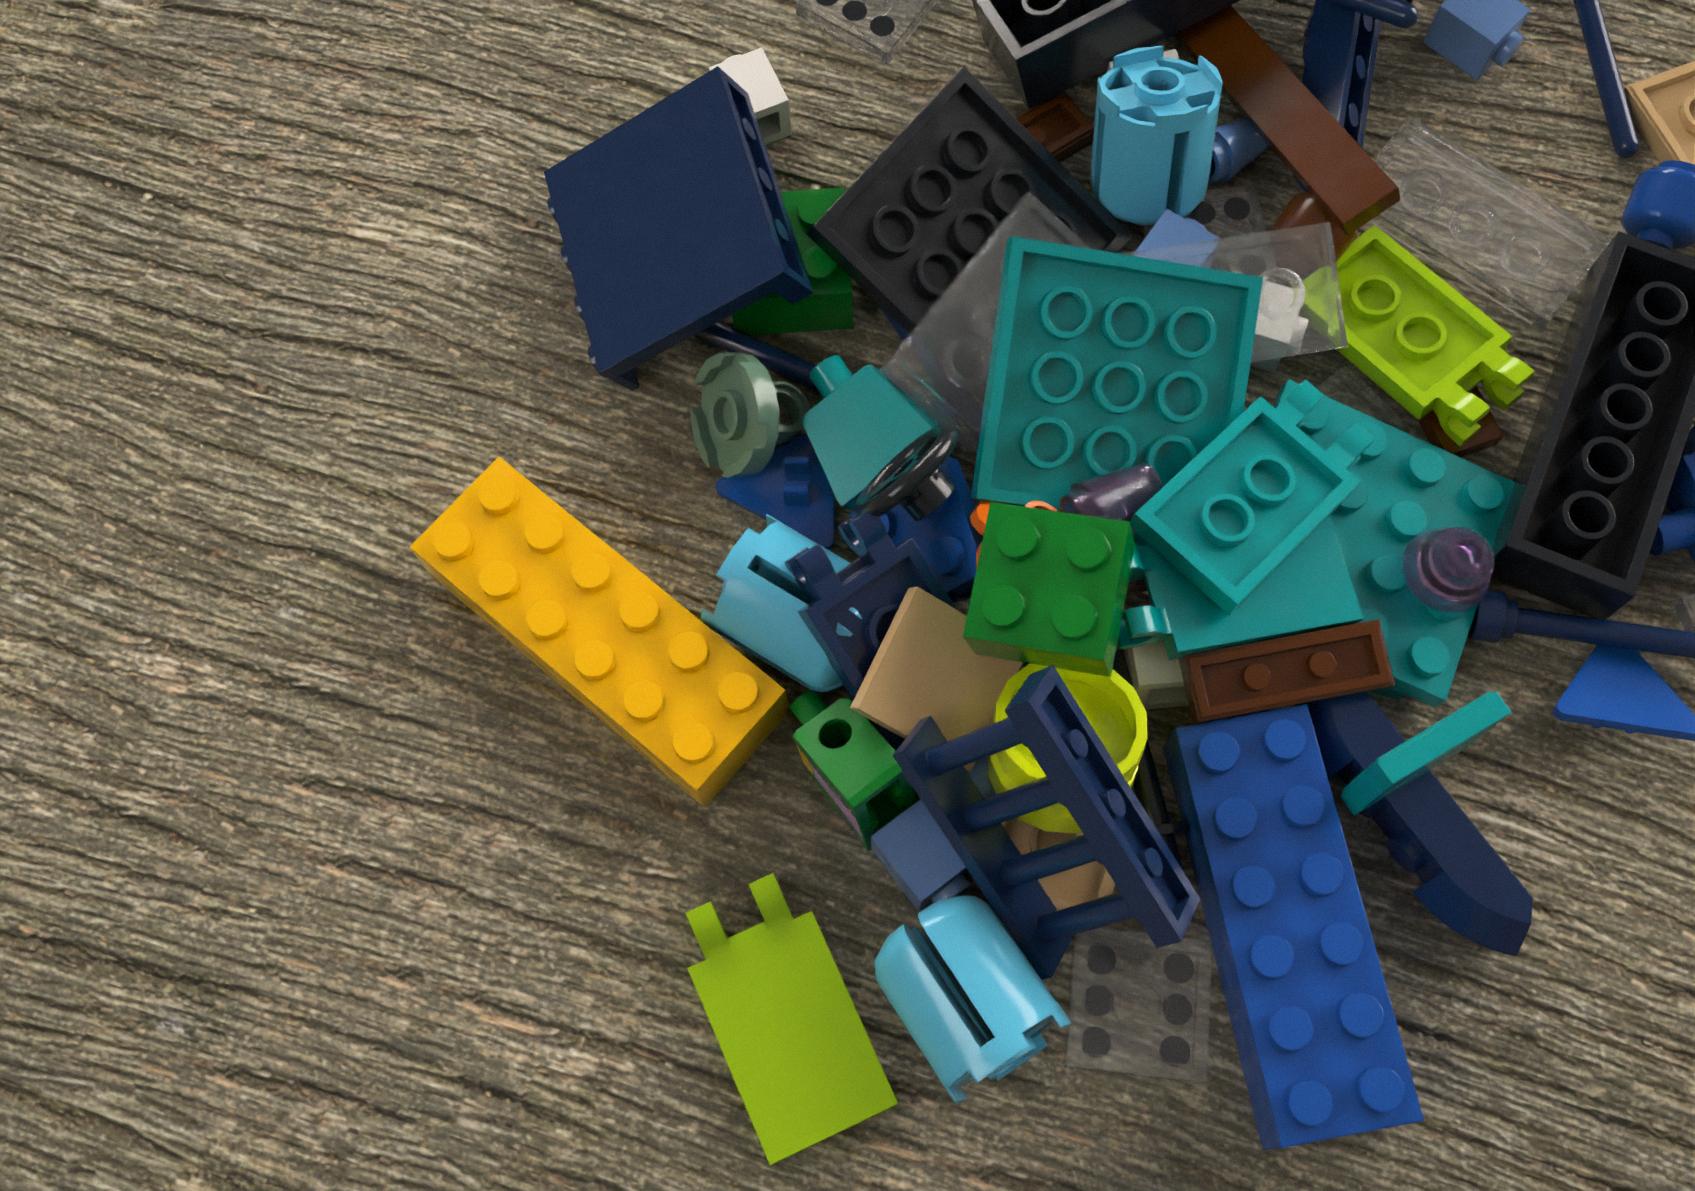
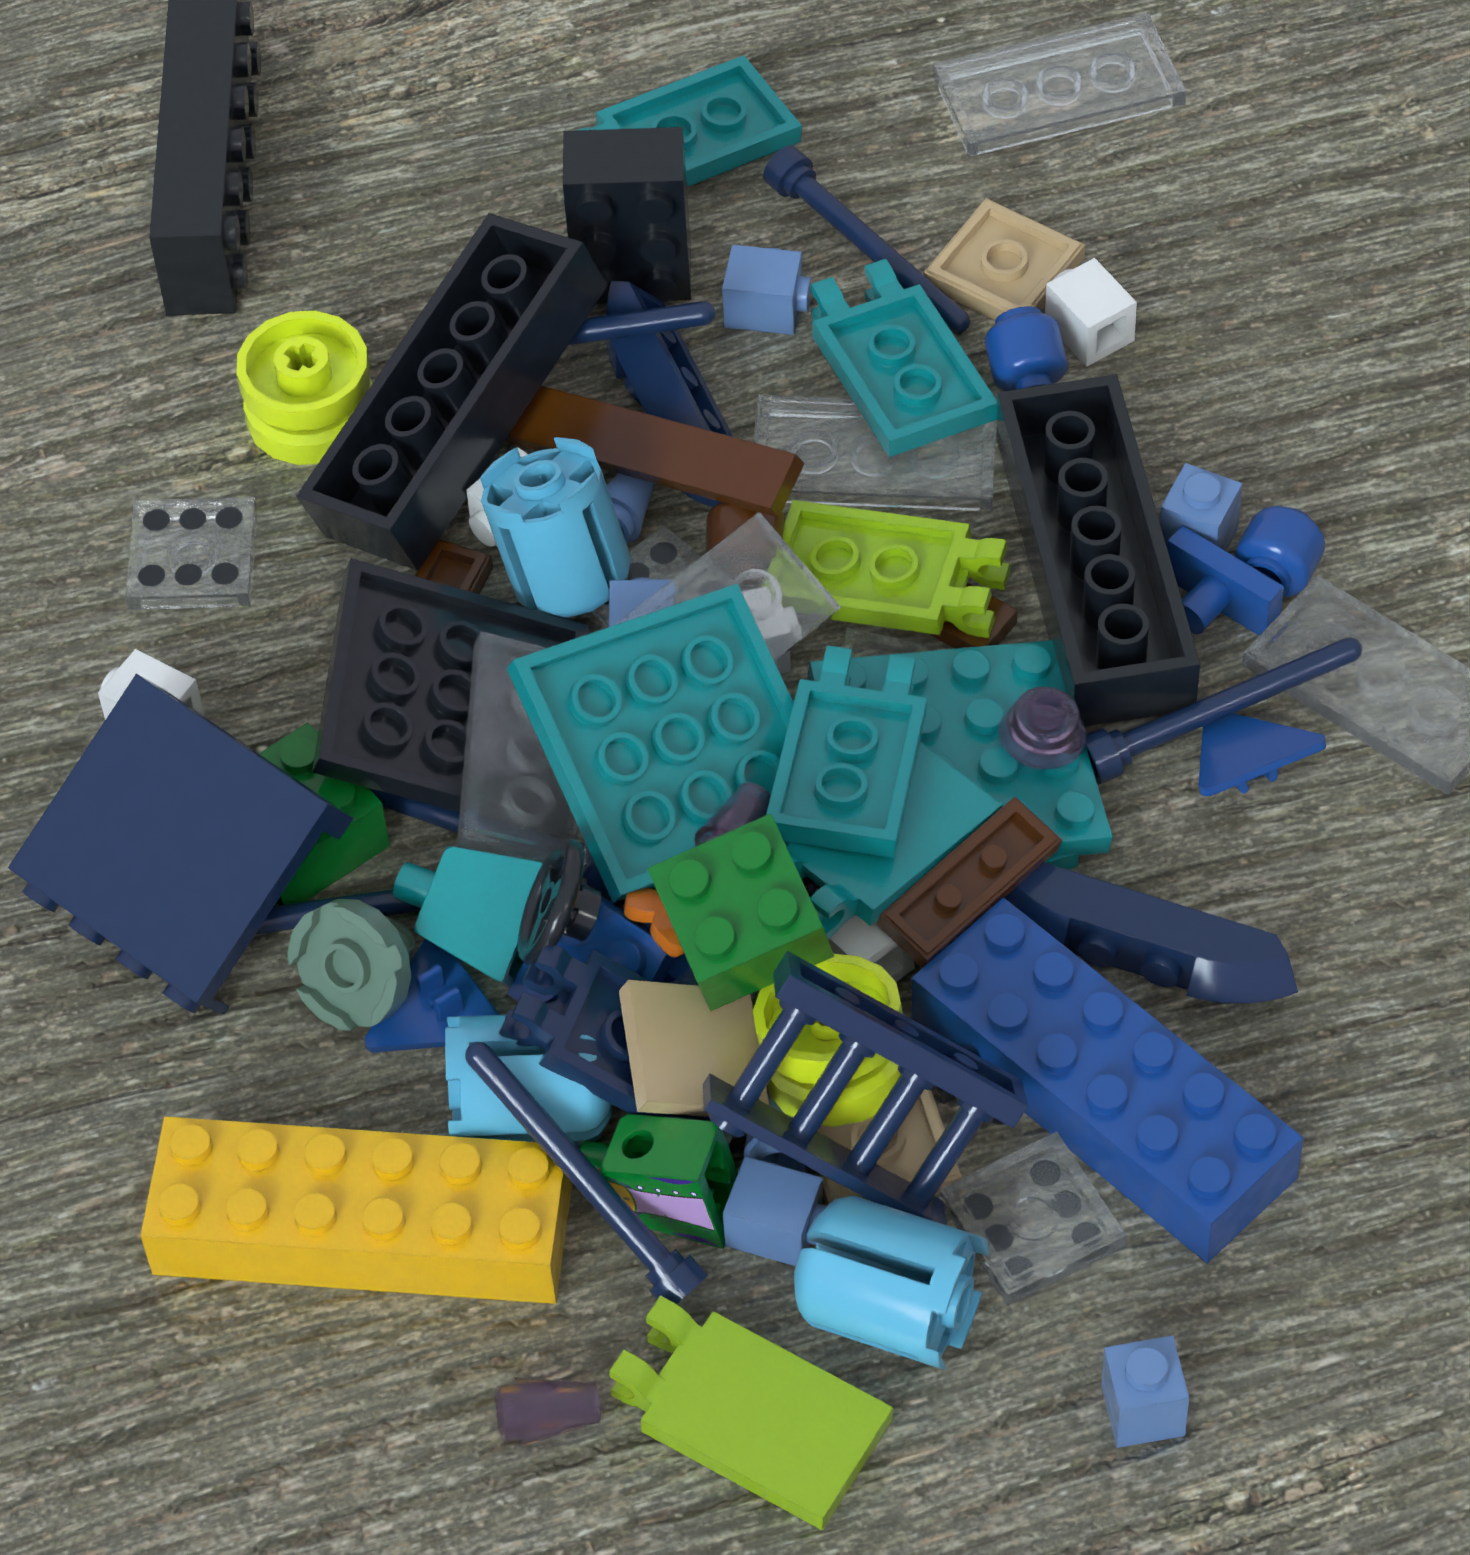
camera: 35 degrees left, 15 degrees down
(622, 902) = (544, 1408): none -> clear purple cone
(801, 855) = (668, 1272): none -> dark blue piece
(1424, 751) = (1115, 867): teal tile -> none
(1550, 155) = (899, 362): none -> teal tile

